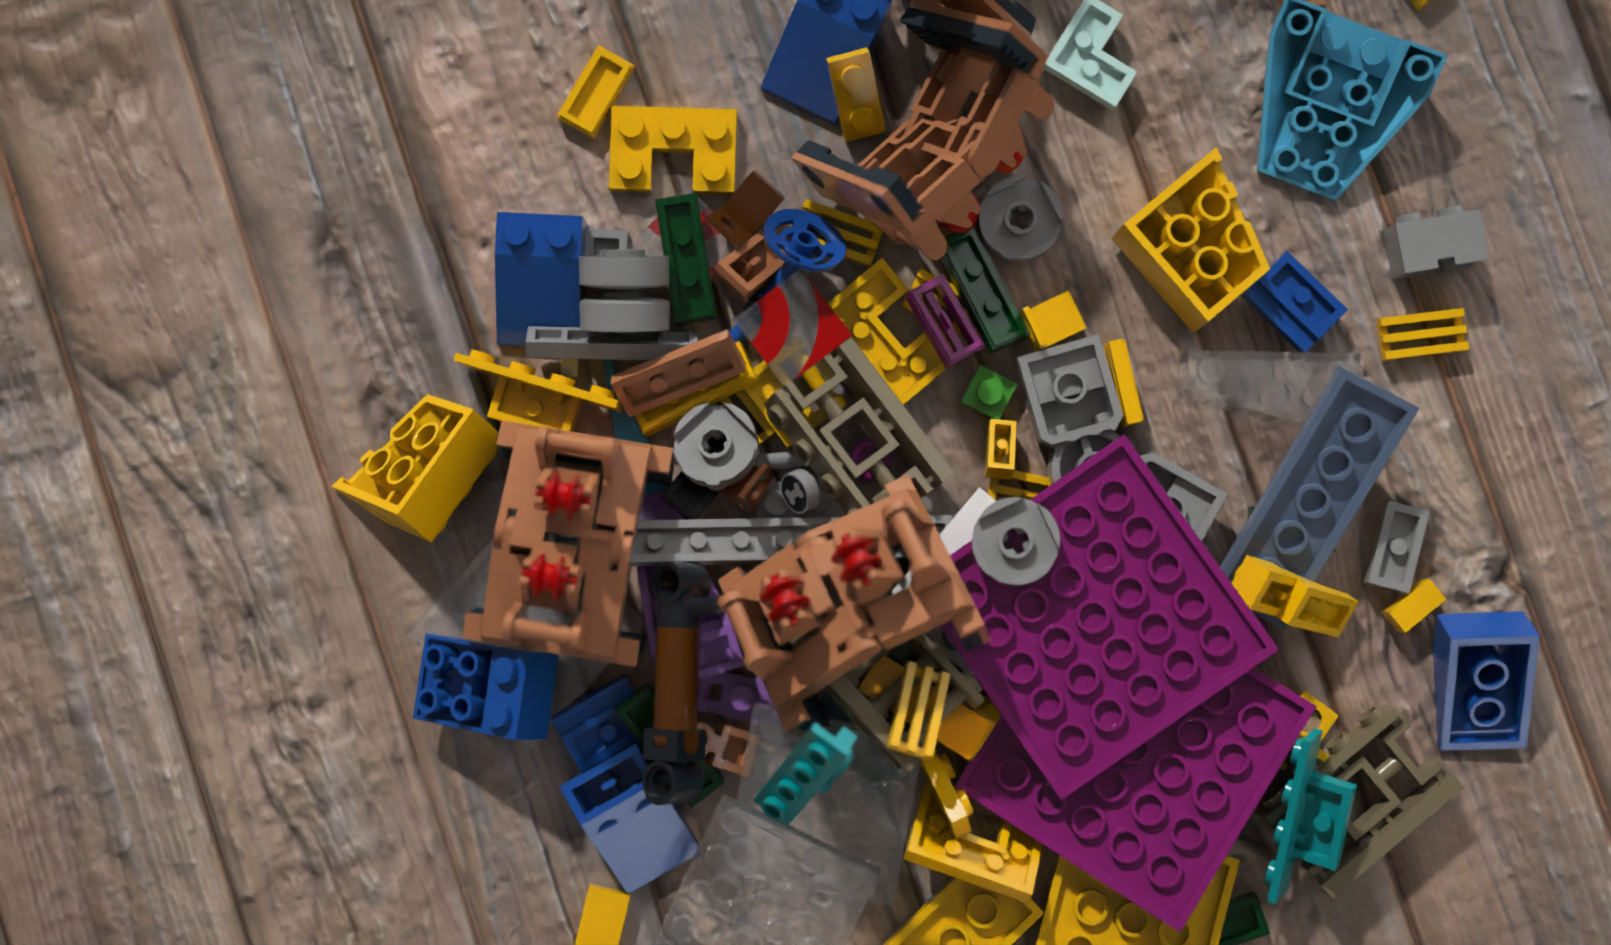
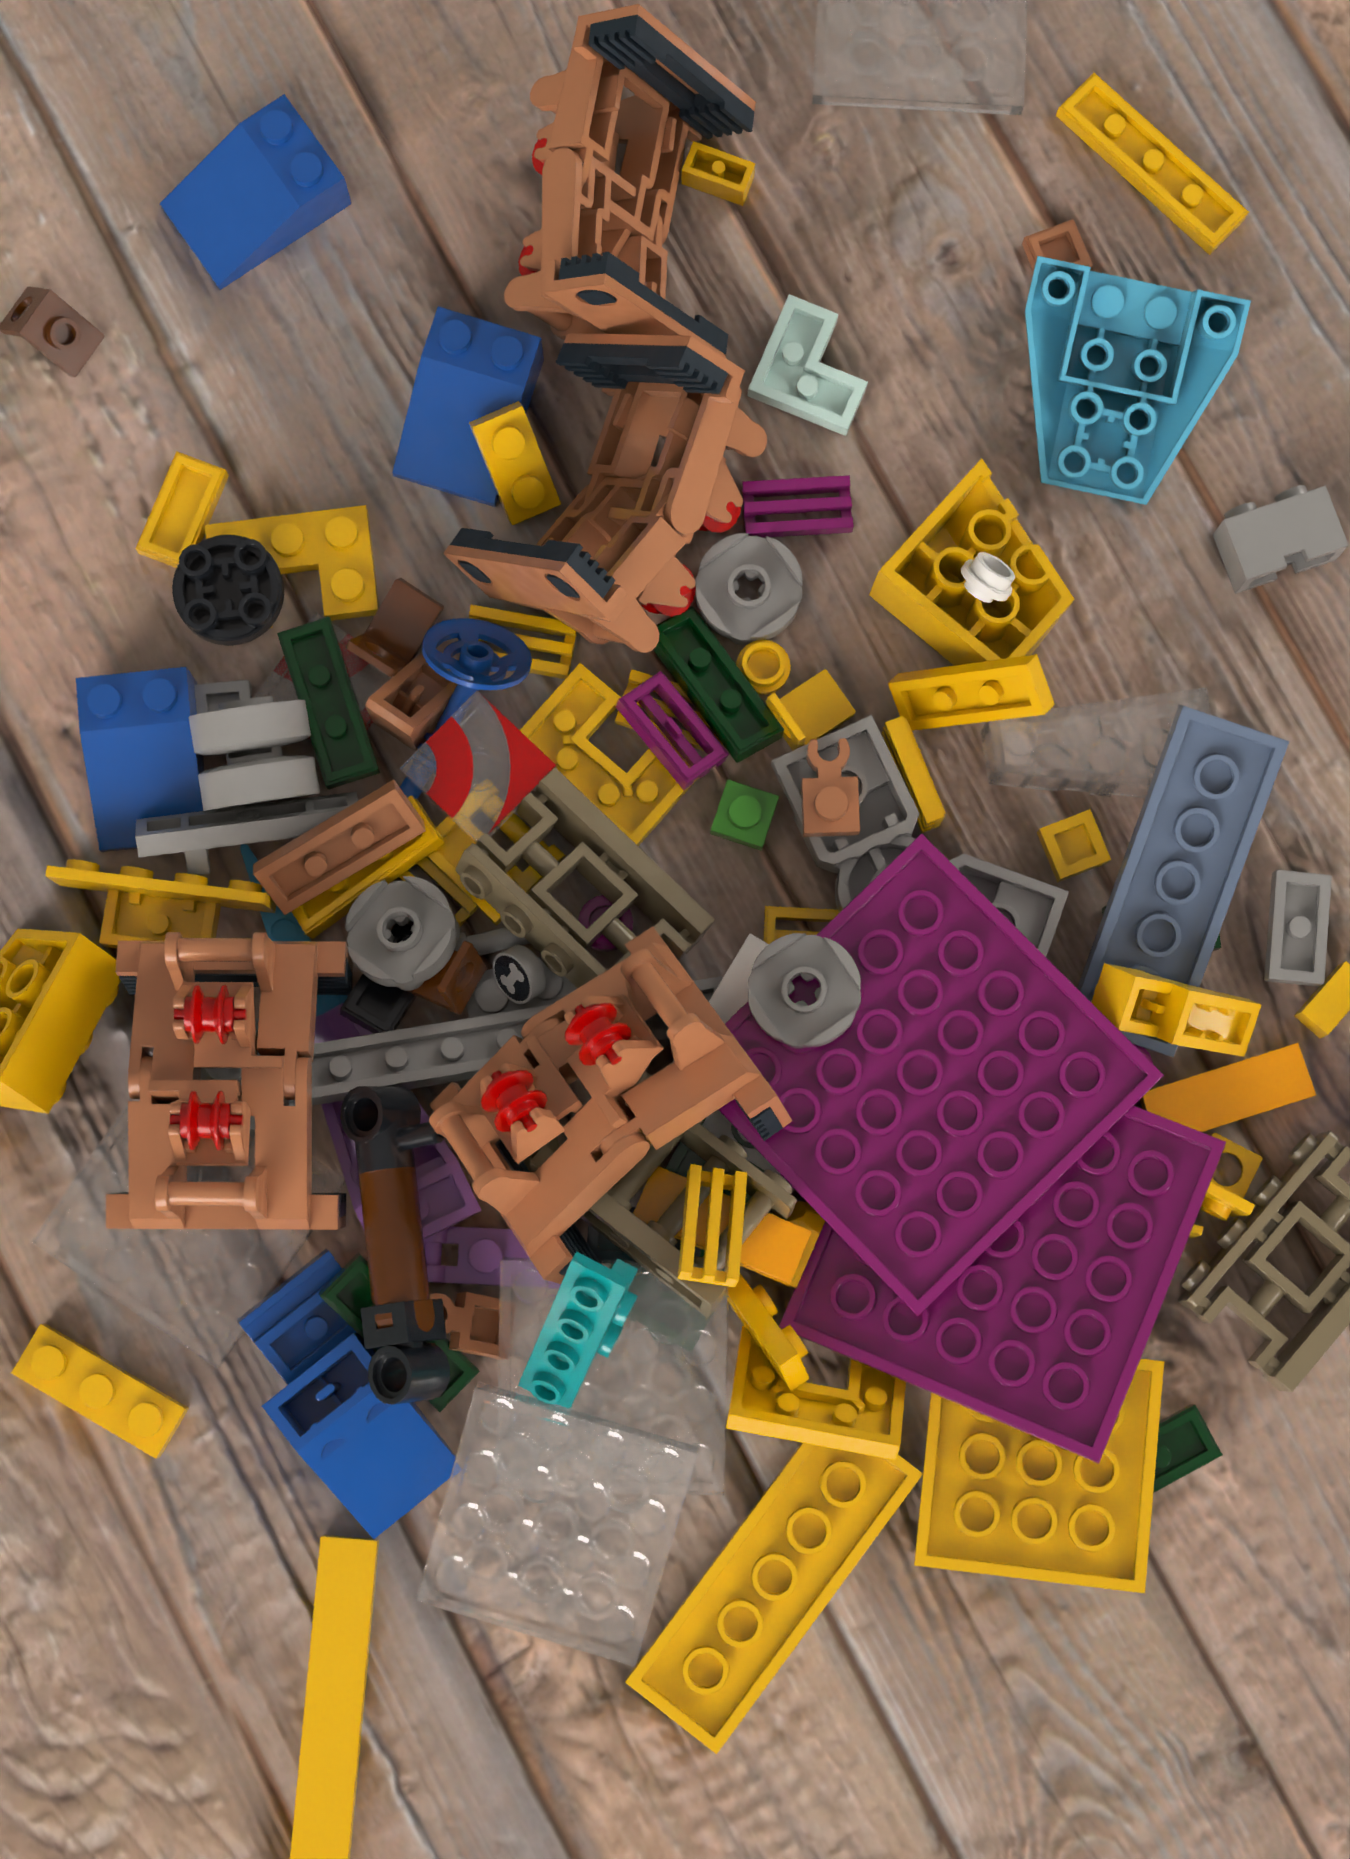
camera: 15 degrees left, 5 degrees down
(441, 753) = (100, 1390): none -> yellow plate
(486, 687) = (147, 1291): blue slope -> none
(622, 160) = (228, 589): none -> black tile
(1000, 449) = (770, 882): yellow piece -> none
(1022, 281) = (764, 665): none -> yellow plate
(1056, 395) = (829, 800): none -> nougat plate
(1073, 145) = (797, 486): none -> magenta tile
(1180, 330) = (972, 693): none -> yellow plate
(1207, 243) = (988, 578): none -> white plate
(1236, 456) = (1073, 845): none -> yellow plate
(1294, 303) = (1114, 639): blue plate -> none
(1314, 818) = (1247, 1289): teal bracket -> none
(1327, 662) = (1234, 1090): none -> light orange tile
(1457, 330) = (1328, 642): yellow tile -> none

